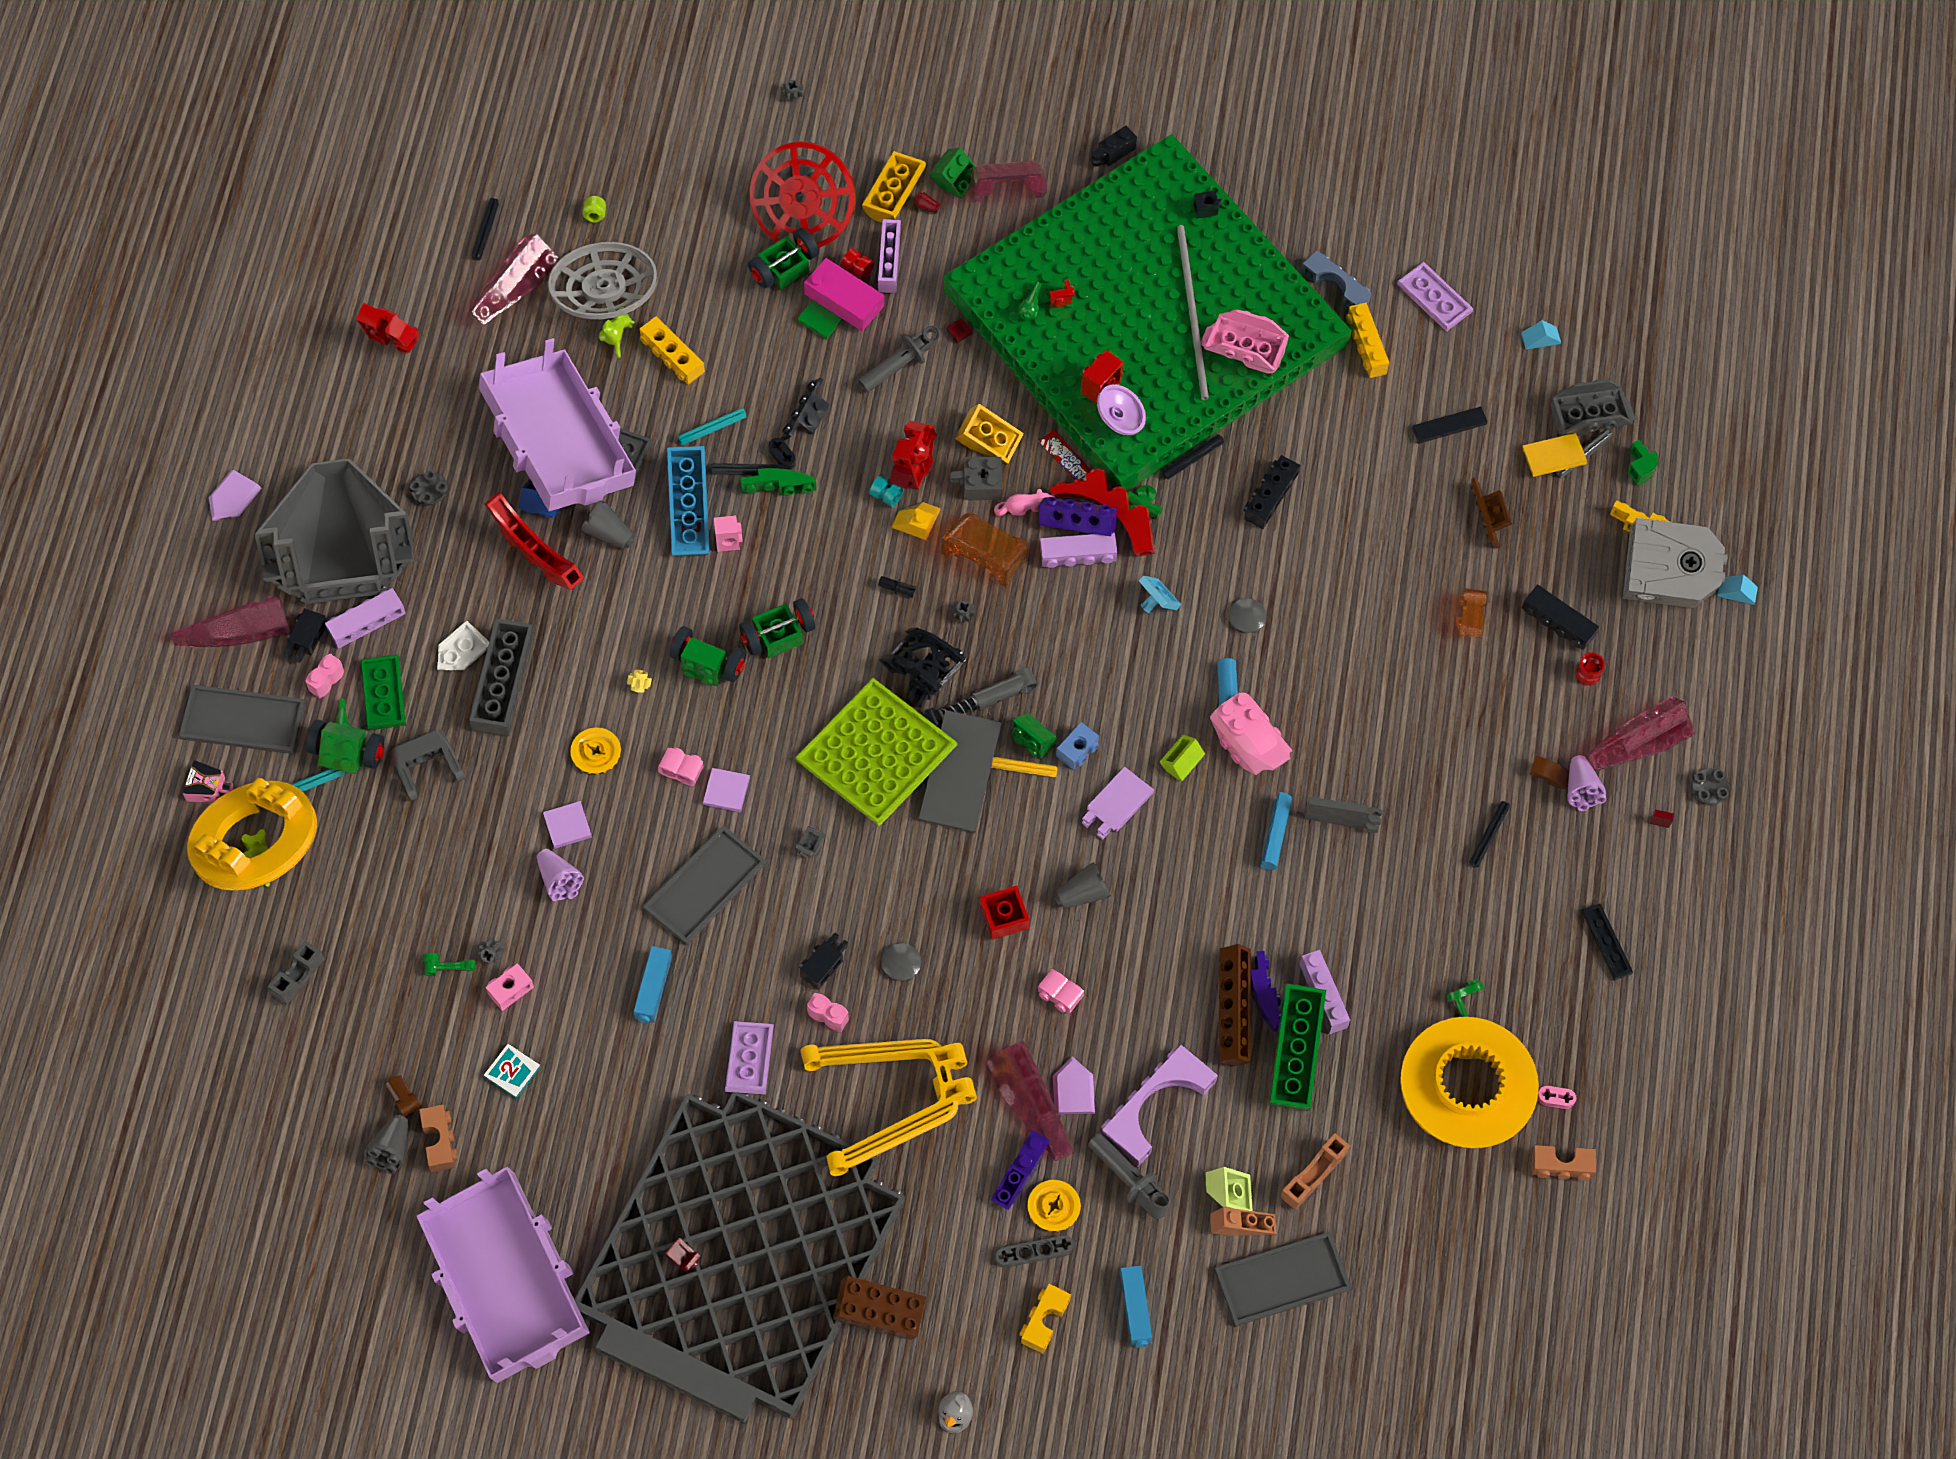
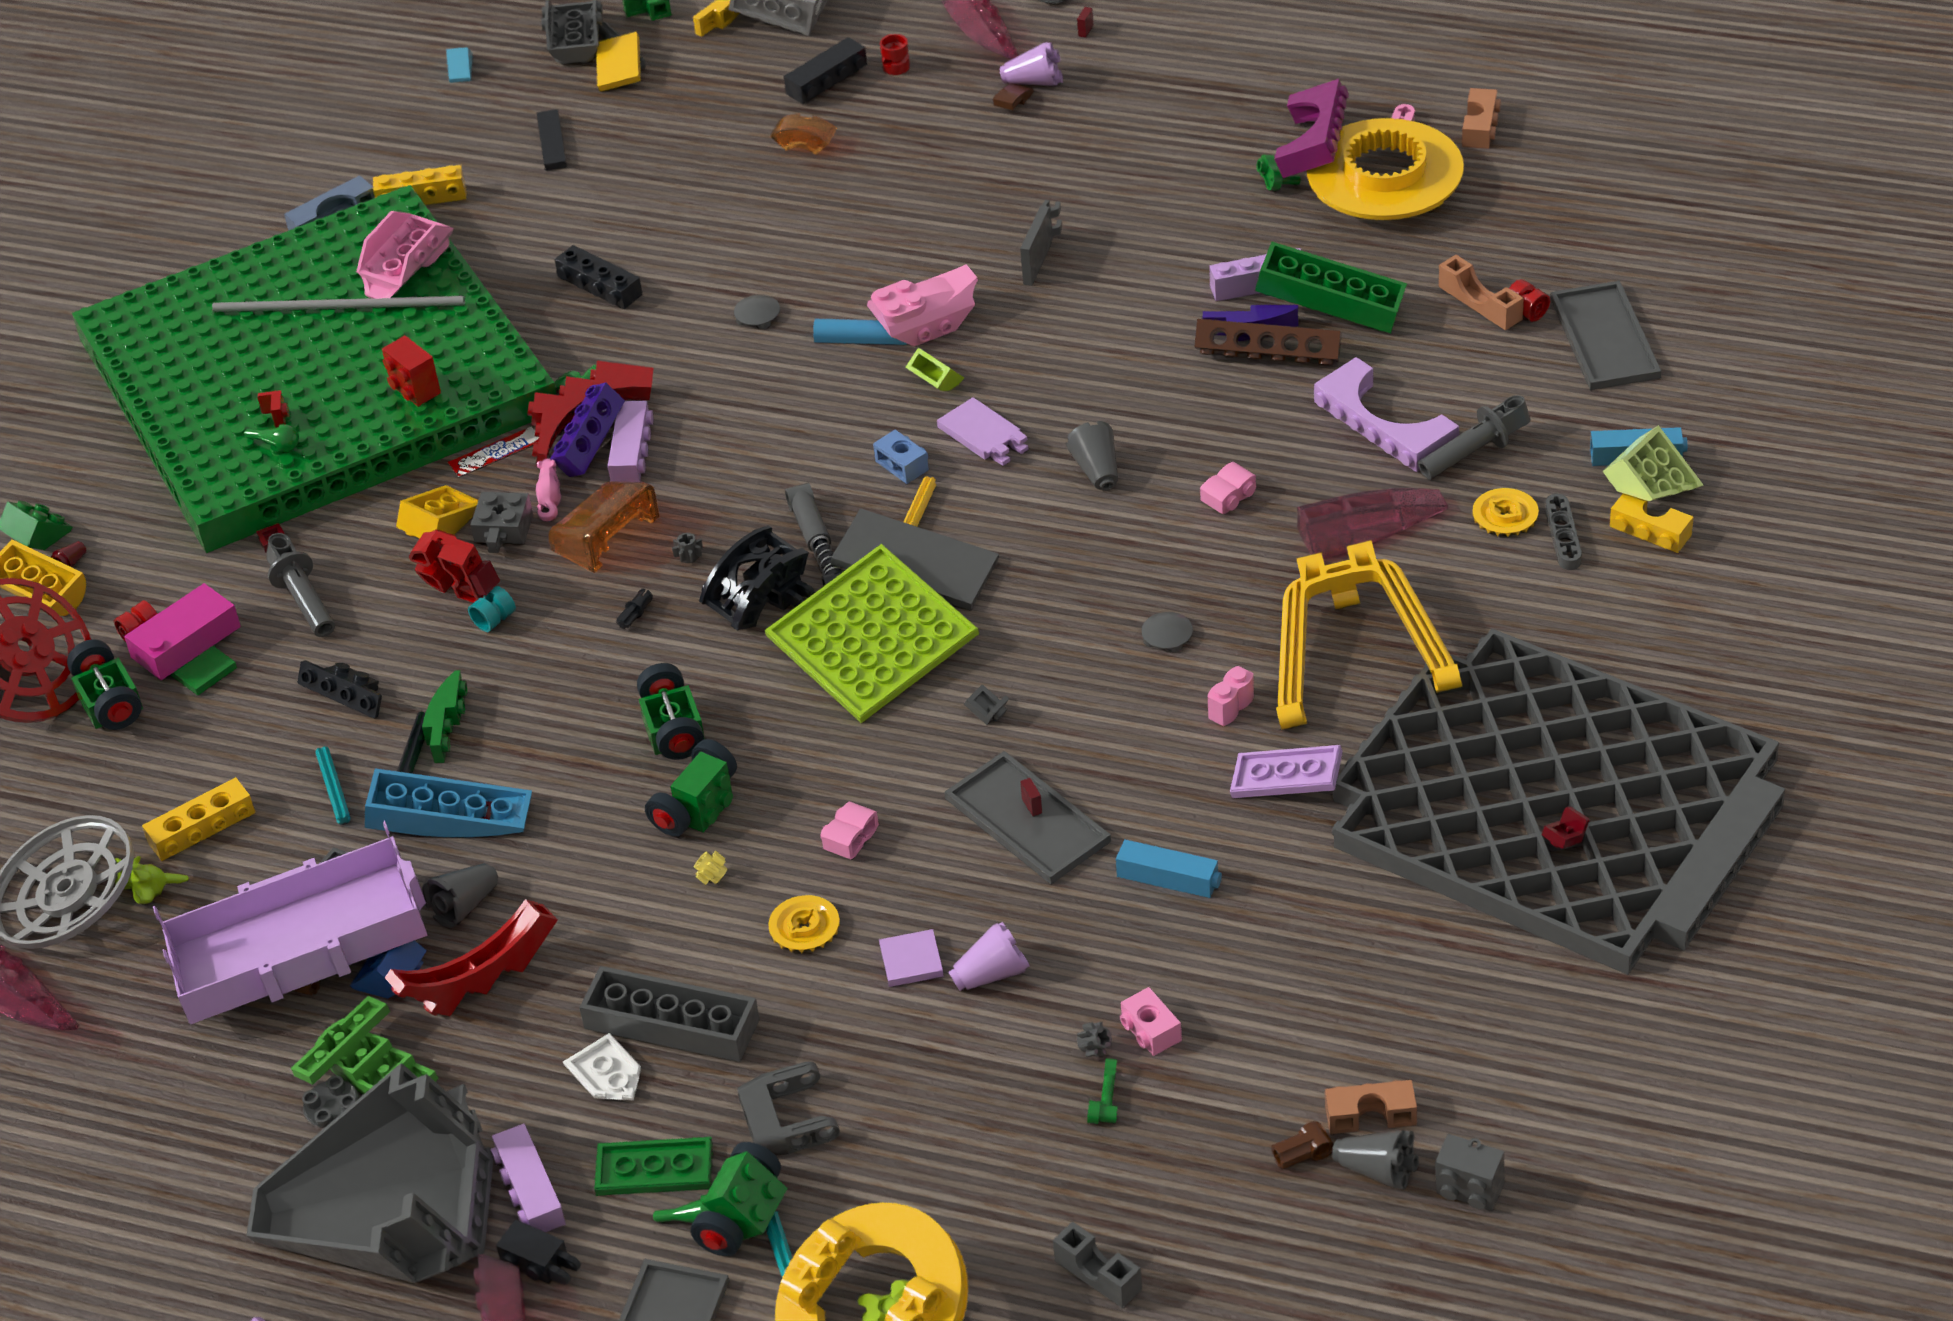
camera: 75 degrees left, 20 degrees down
(321, 679) = (613, 1228): bright pink brick -> none
(370, 1202) = (1470, 1172): none -> dark grey brick
(385, 325) = (38, 1122): red connector -> none
(458, 501) = (356, 1053): none -> bright green slope
(502, 1274) = (1584, 1024): lavender piece -> none
(512, 1071) = (1275, 1027): tile -> none
(714, 883) = (1031, 796): none -> dark red tile
(726, 790) = (891, 789): lavender tile -> none
(727, 533) = (512, 760): bright pink brick -> none
(784, 451) = (398, 715): black beam -> none
(823, 962) = (1159, 699): black hinge -> none
(879, 1308) = (1640, 653): reddish brown brick -> none
(889, 256) = (131, 586): lavender brick -> none
(916, 520) = (542, 586): yellow slope -> none
(955, 1409) = (1764, 599): light grey piece -> none
(985, 175) = (68, 471): clear pink windscreen -> none
(1004, 912) = (1118, 526): red brick -> none
(1020, 1170) = (1463, 537): dark purple slope -> none
(1033, 735) = (882, 489): green slope -> none
(1073, 1089) = (1351, 482): lavender tile -> none
(1091, 1313) = (1651, 468): none -> yellowish green wedge
(1114, 147) = (60, 377): black hinge -> none
(1121, 410) = (465, 362): lavender dish -> none
(1159, 594) = (714, 371): medium azure tile -> none
(1193, 456) = (529, 340): black axle -> none
(1200, 204) = (193, 278): black brick -> none
(1230, 1188) = (1495, 364): yellowish green slope -> none
(1242, 1222) = (1537, 358): nougat slope -> none
(1276, 831) = (1047, 303): dark azure brick -> none
(1313, 1209) = (1534, 300): none -> red wheel
(1435, 296) = (376, 139): lavender tile -> none
(1476, 1020) = (1319, 144): none -> magenta arch
(1489, 834) = (1079, 145): black axle -> none
(1493, 510) = (676, 111): reddish brown bracket -> none
(1607, 942) = (1222, 74): black tile -> none

